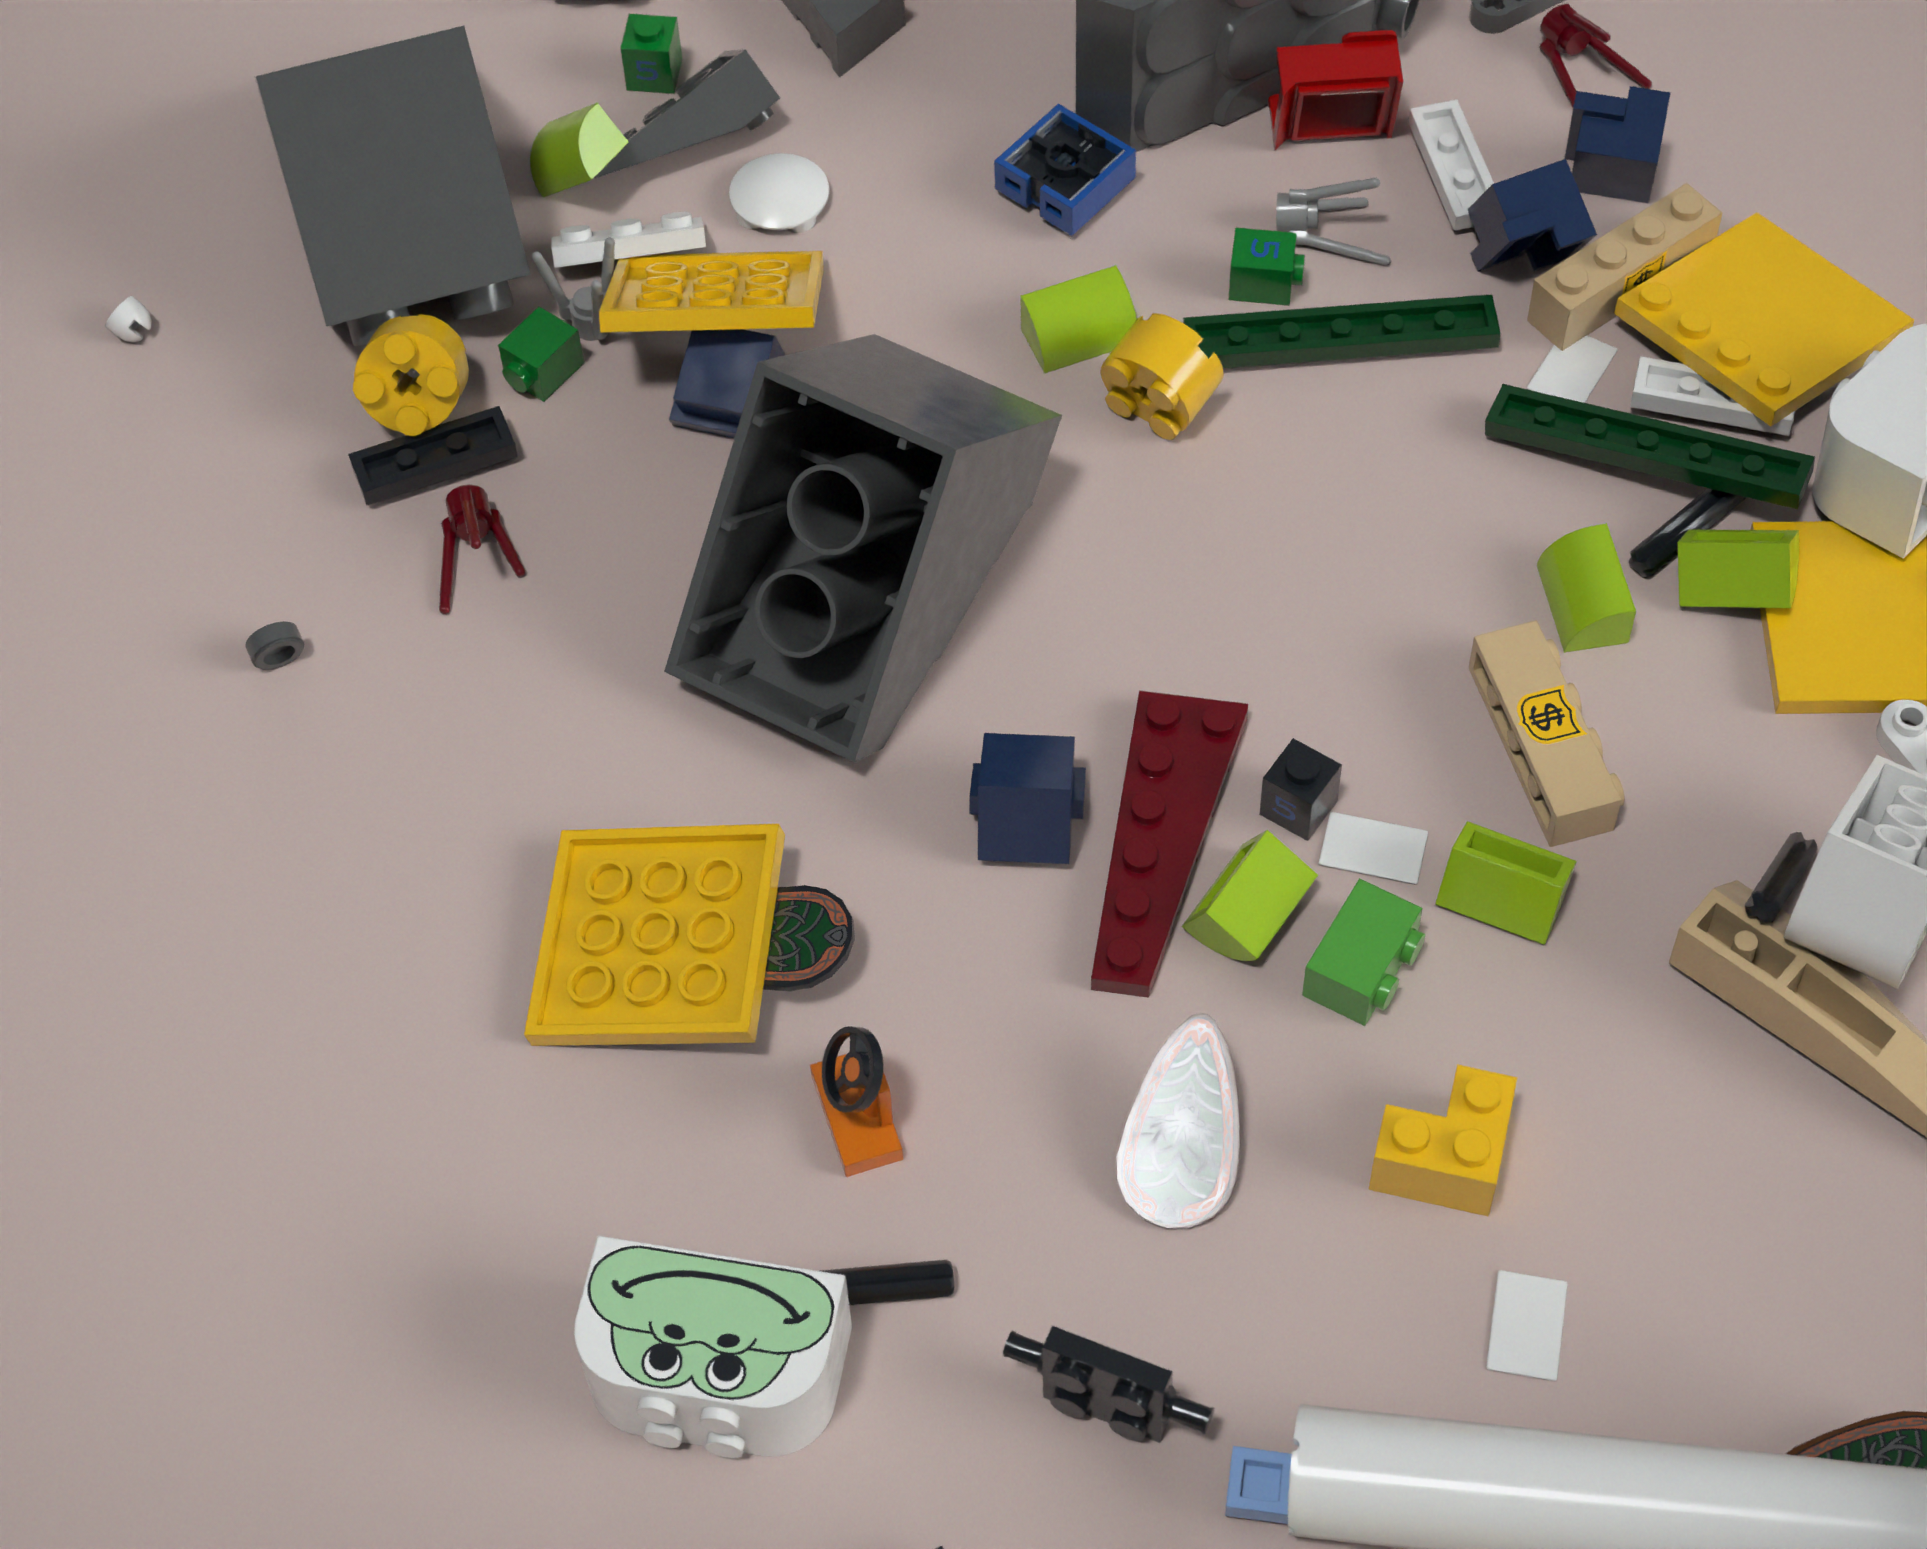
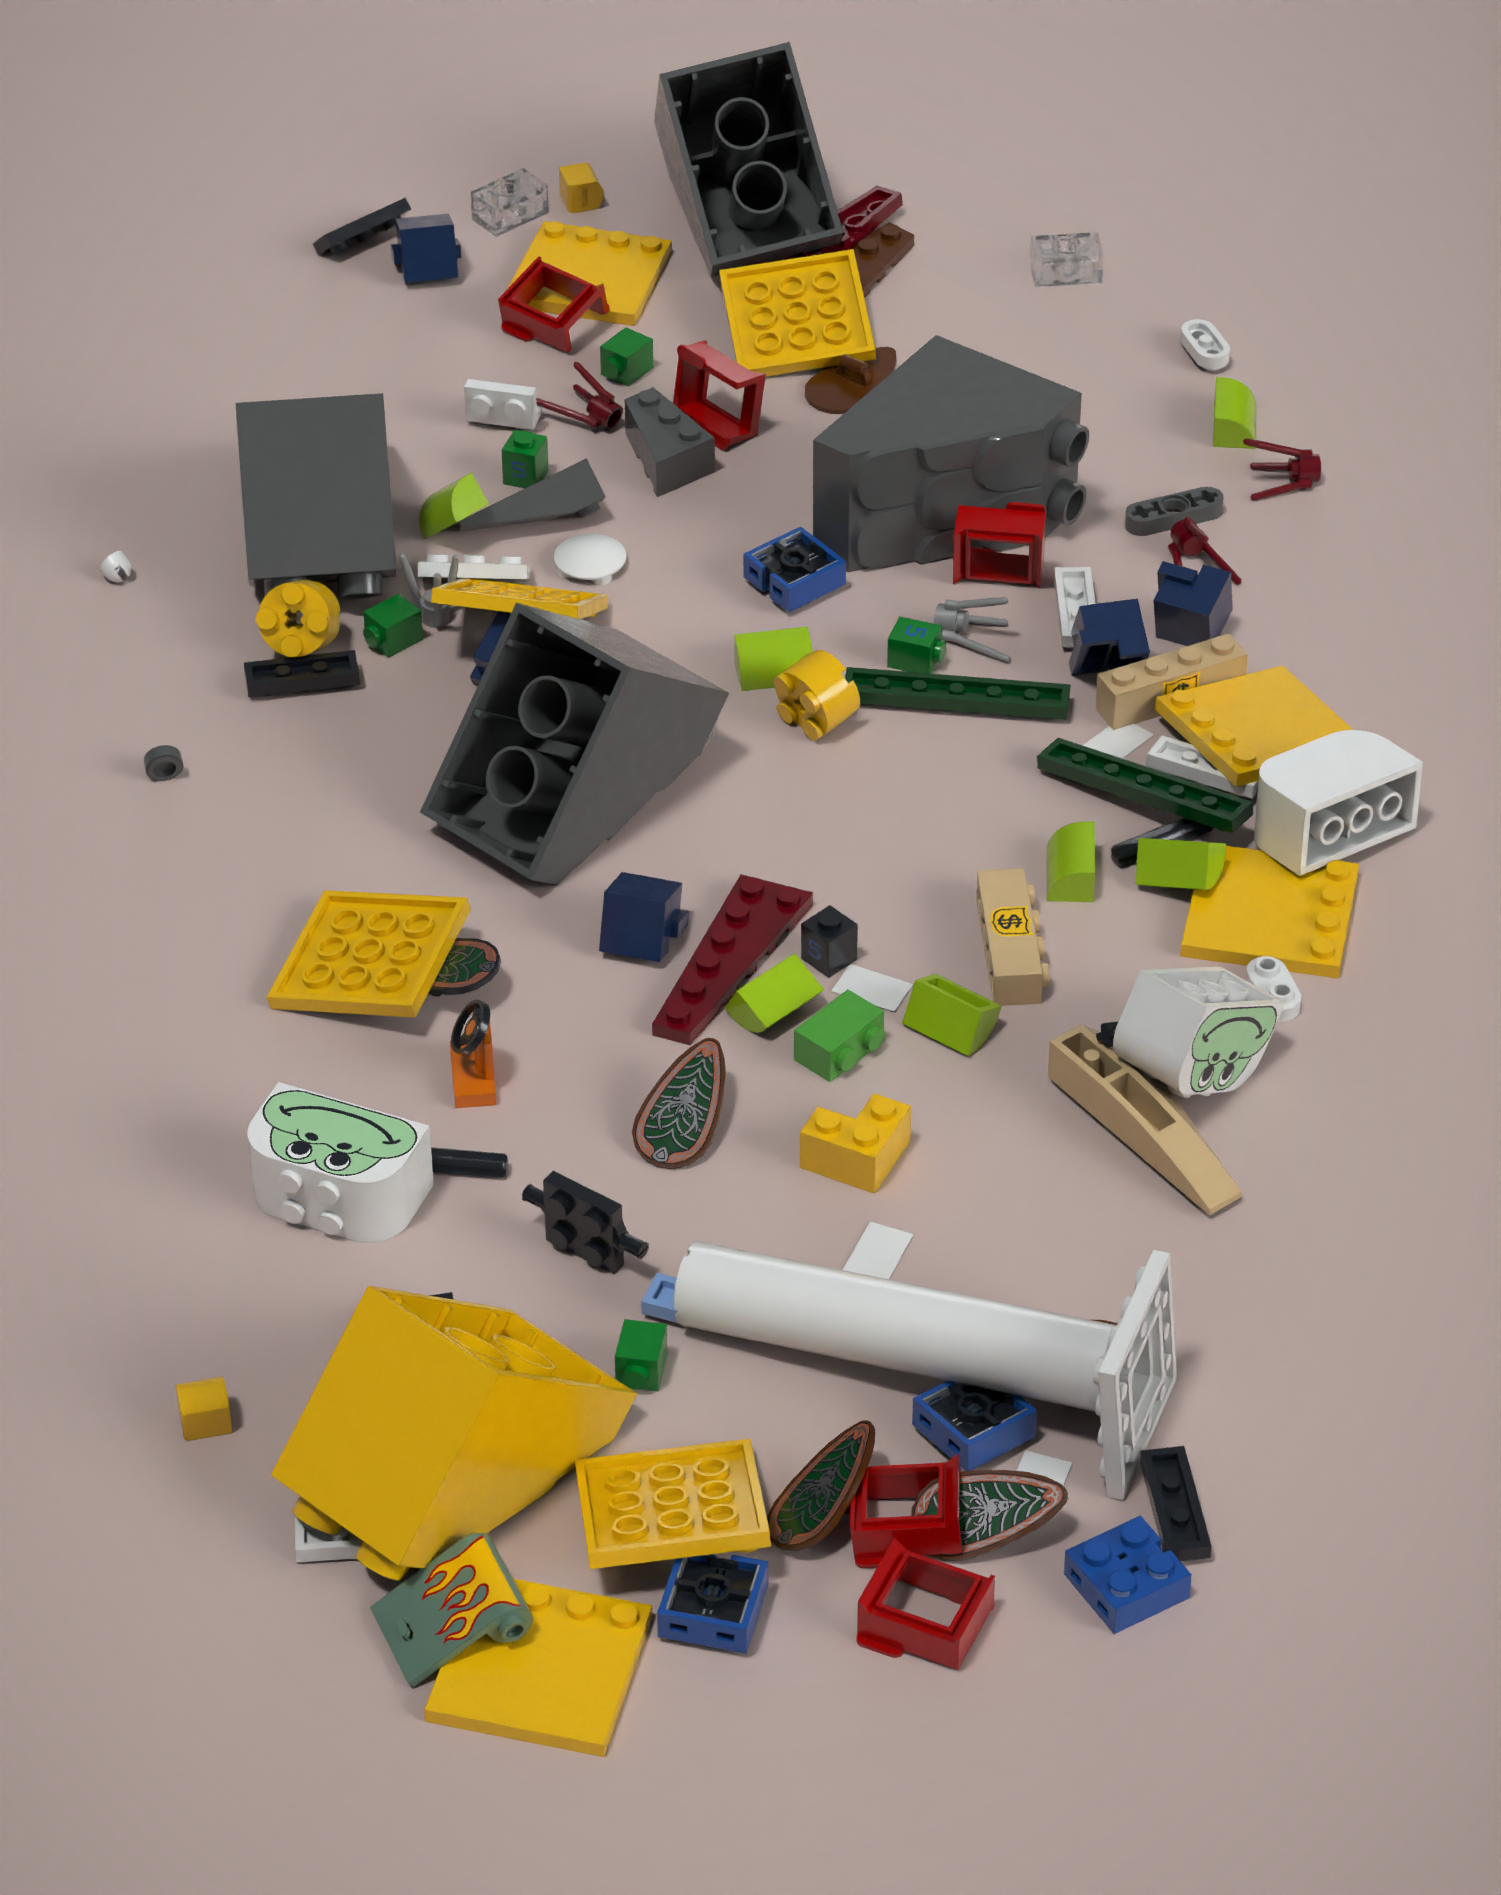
camera: 10 degrees right, 15 degrees down
(470, 520) = (315, 713): dark red plant -> none

